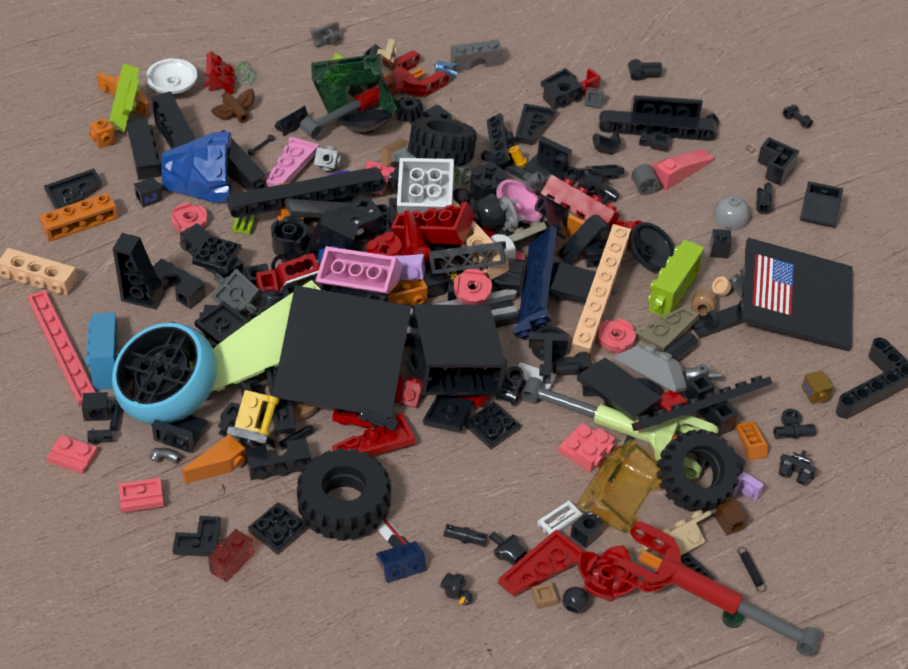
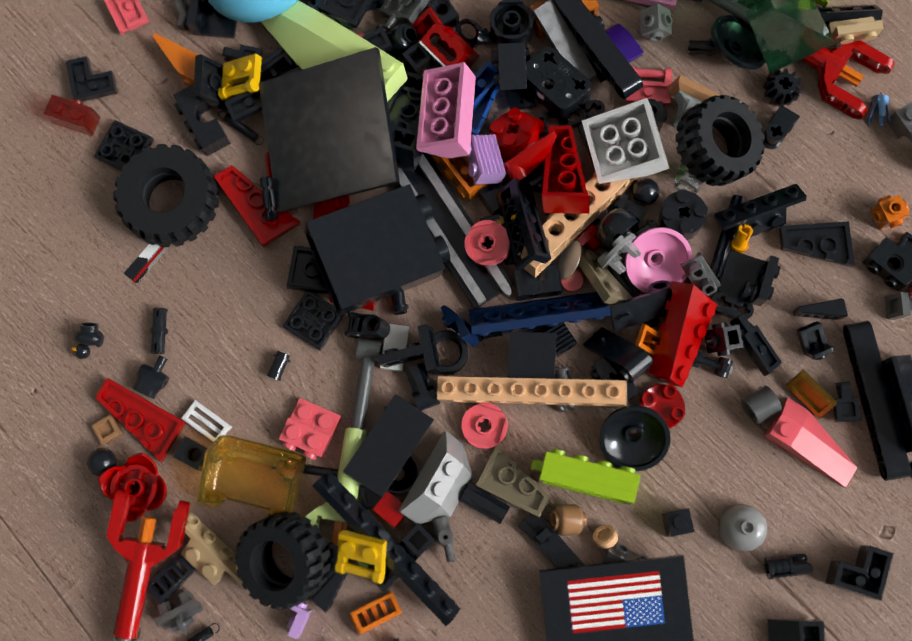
camera: 85 degrees right, 30 degrees up
(358, 140) = (701, 47): none -> black pin
(402, 561) = (109, 276): dark blue bracket -> none
(525, 82) = (890, 211): none -> orange brick
(525, 454) = (278, 365): none -> black pin
(585, 132) = (829, 309): none -> black slope
(644, 154) = (811, 393): none -> pearl gold tile
(703, 410) = (362, 549): none -> yellow plate
(731, 517) = (249, 610): reddish brown brick -> none
(733, 566) = (181, 616): none -> flat silver hips

